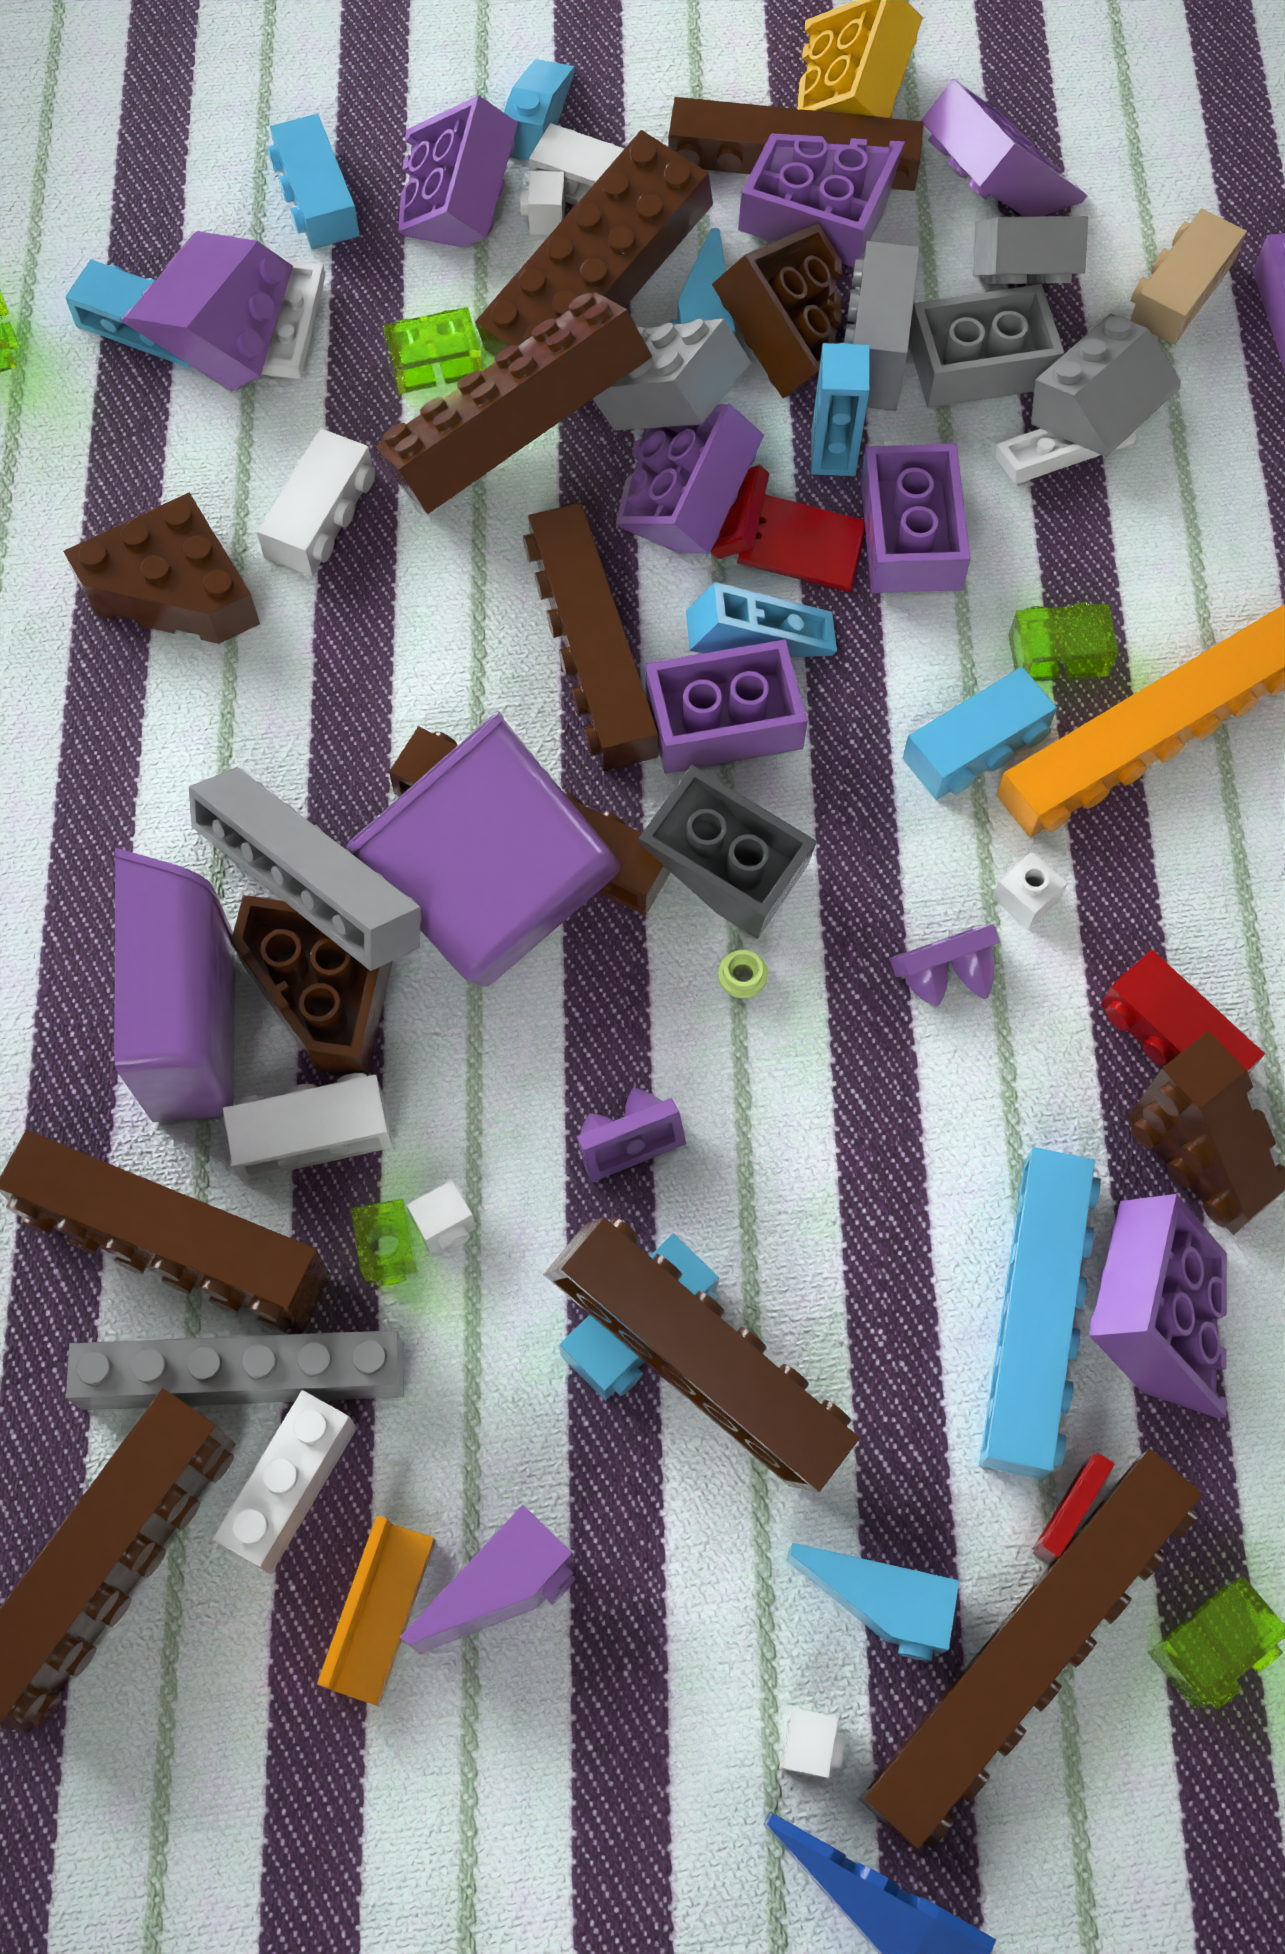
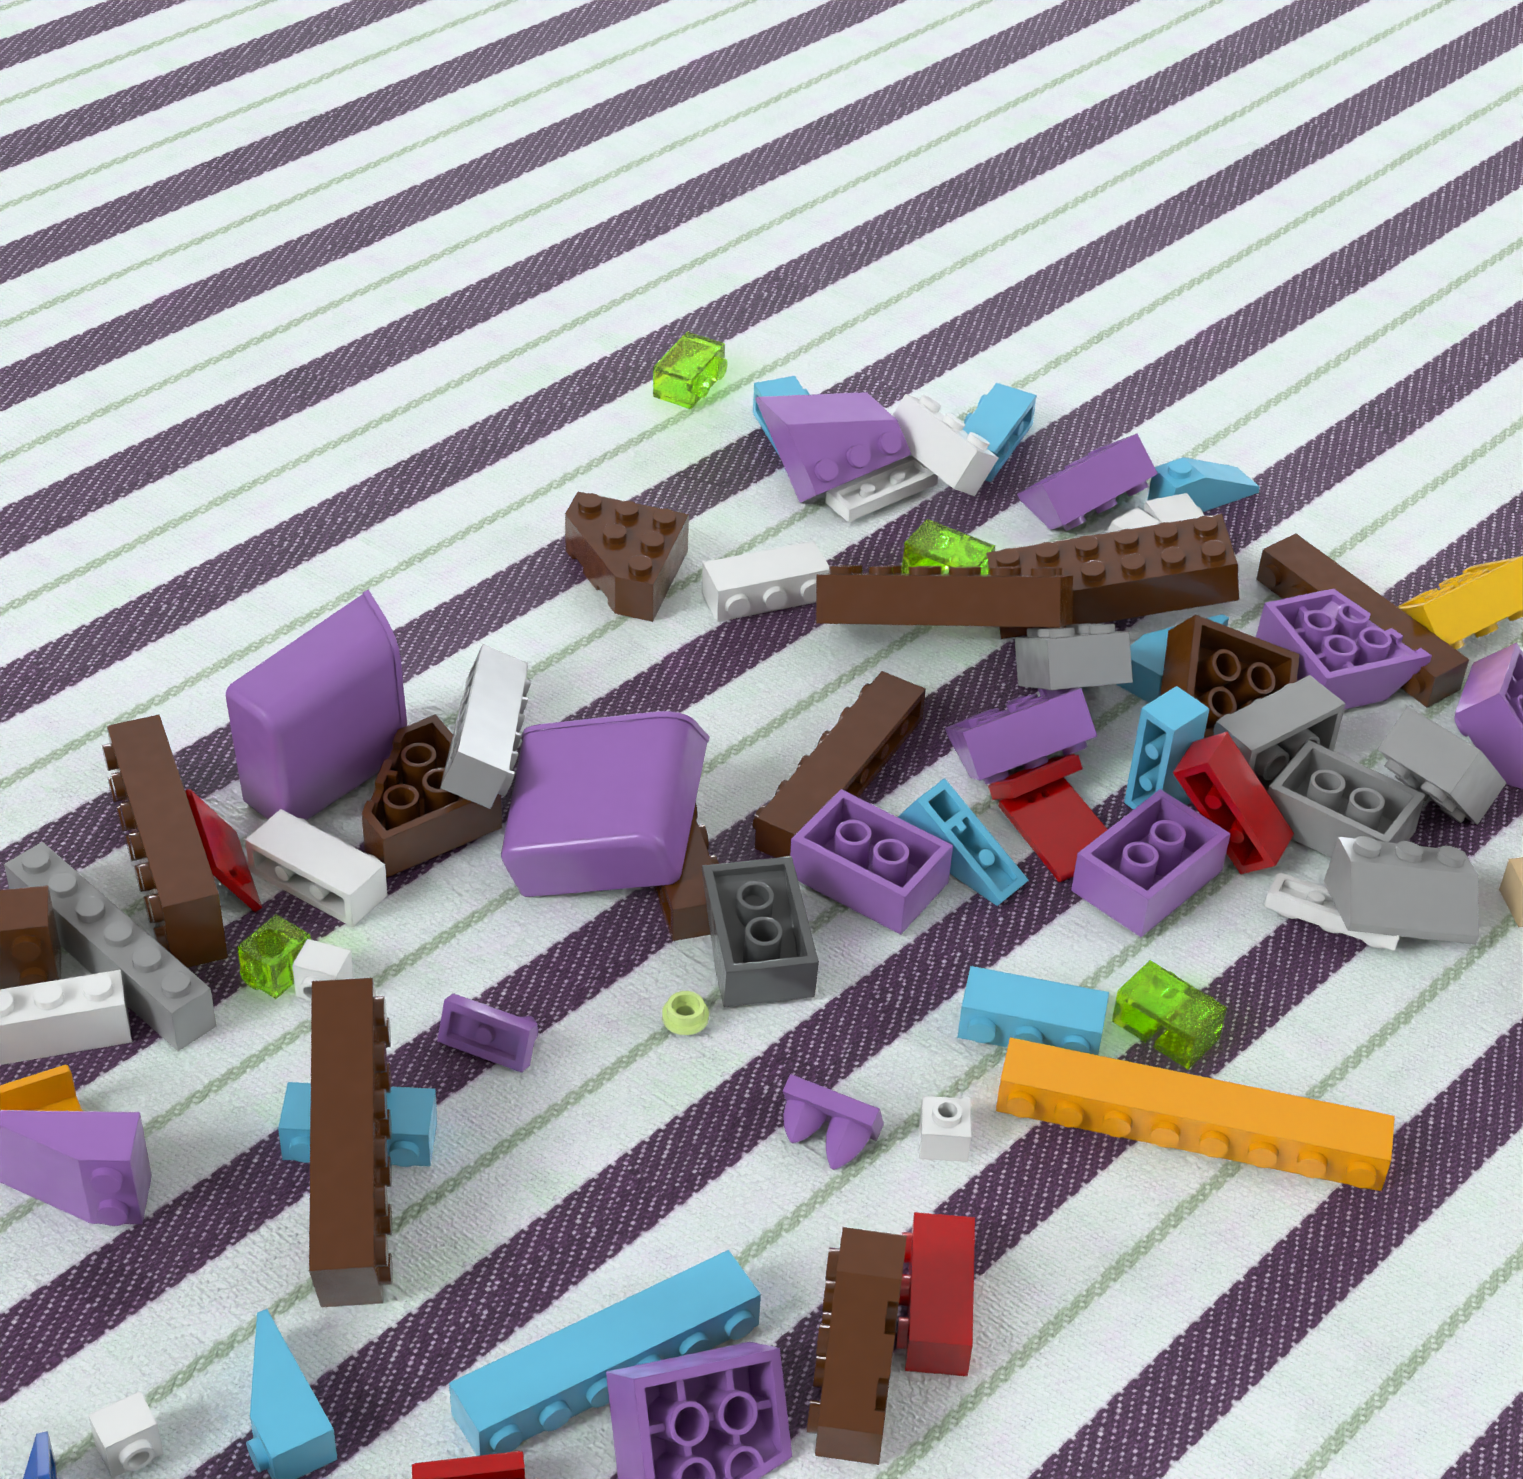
camera: 45 degrees right, 25 degrees down
(223, 1191) = (224, 852): none -> red container
(308, 232) = (943, 444): none -> white brick
(928, 409) = (1234, 799): none -> red brick

